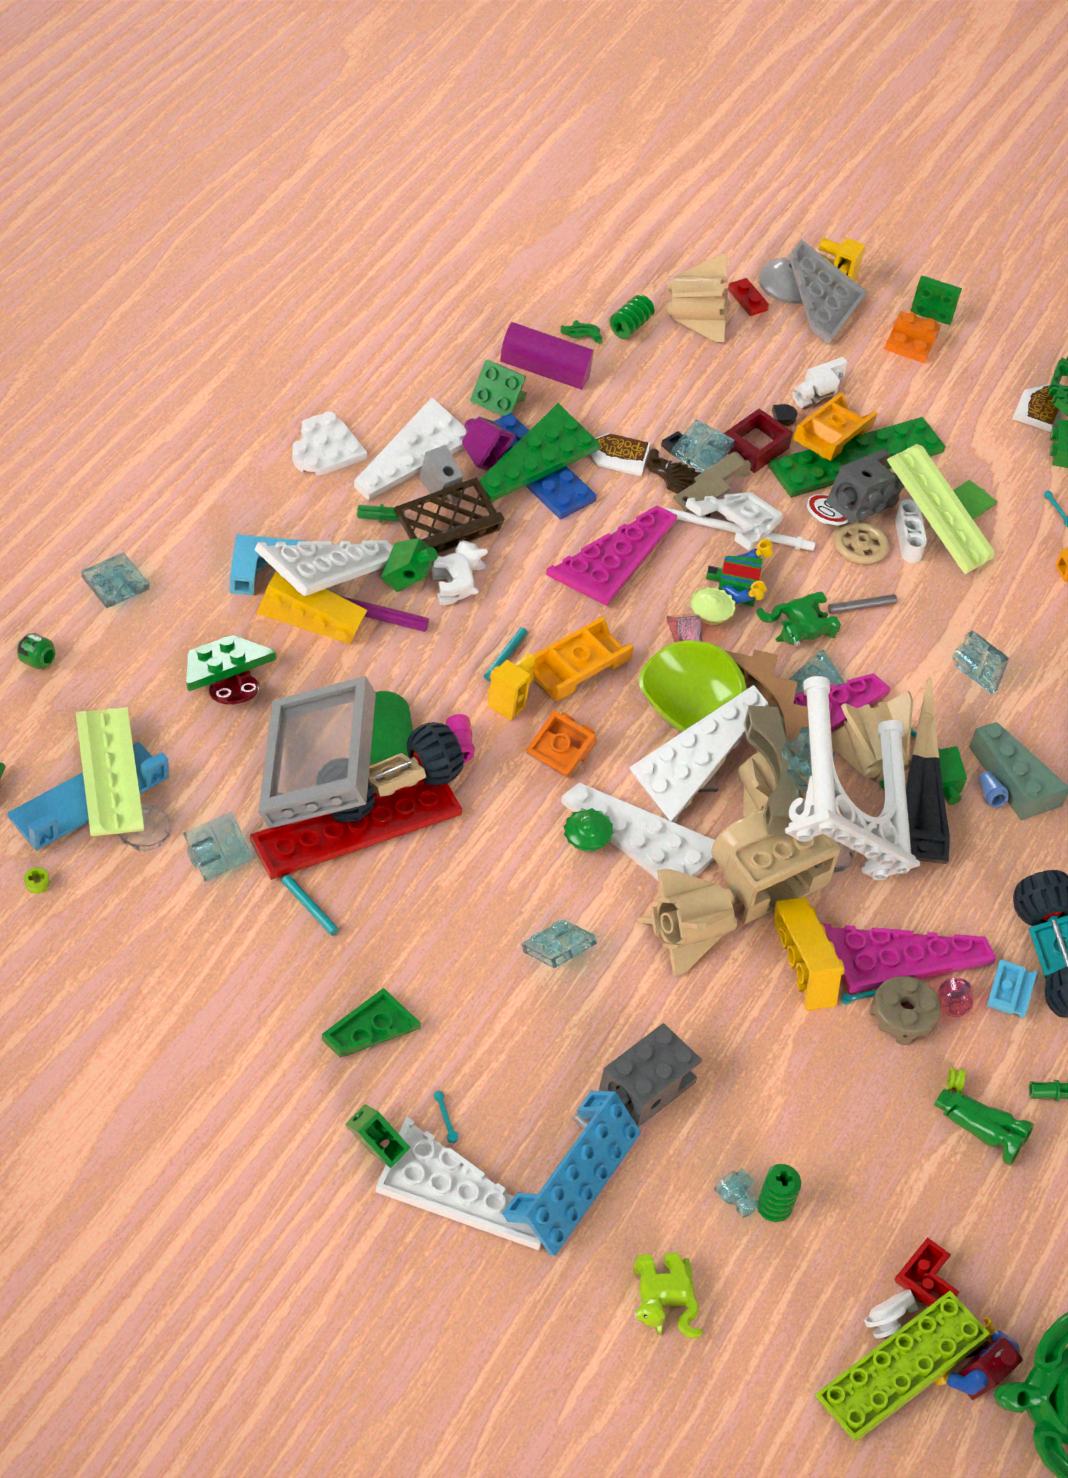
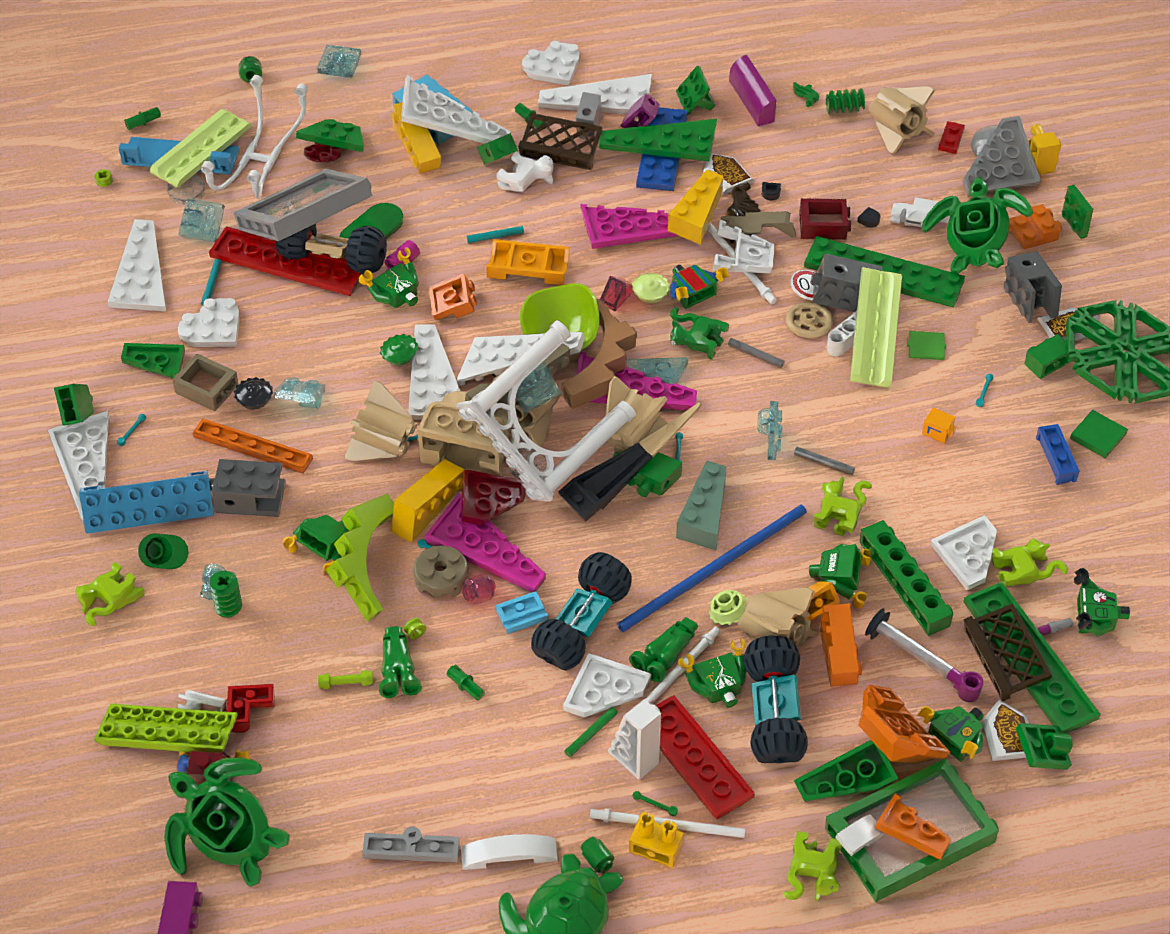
camera: 55 degrees right, 0 degrees up
(181, 780) = (254, 175): none -> white bar
(227, 956) = (139, 276): none -> white wing
(373, 946) = (213, 326): none -> white plate
(393, 616) = (456, 168): magenta axle -> none
(459, 1028) = (220, 391): none -> dark tan window
(495, 767) = (395, 285): none -> green torso
(511, 686) = (458, 247): yellow brick -> none
(519, 980) = (253, 393): none -> black piece
(579, 1034) = (252, 445): none -> orange tile
(656, 1207) = (163, 551): none -> green piece
(661, 500) = (696, 208): none -> yellow wedge
(702, 446) = (778, 197): clear light blue plate -> none
(777, 1064) = (318, 536): none -> green torso
(832, 427) = (883, 238): light orange piece -> none
(852, 1070) = (353, 545): none -> lime arch
(855, 906) = (488, 496): none -> dark red plate
(893, 360) = (977, 226): none -> green animal
(954, 1193) = (325, 680): none -> lime bar
(993, 790) = (674, 507): medium blue cone -> none
(994, 389) = (1032, 285): none -> dark grey torso
(1036, 660) = (824, 460): none -> flat silver bar

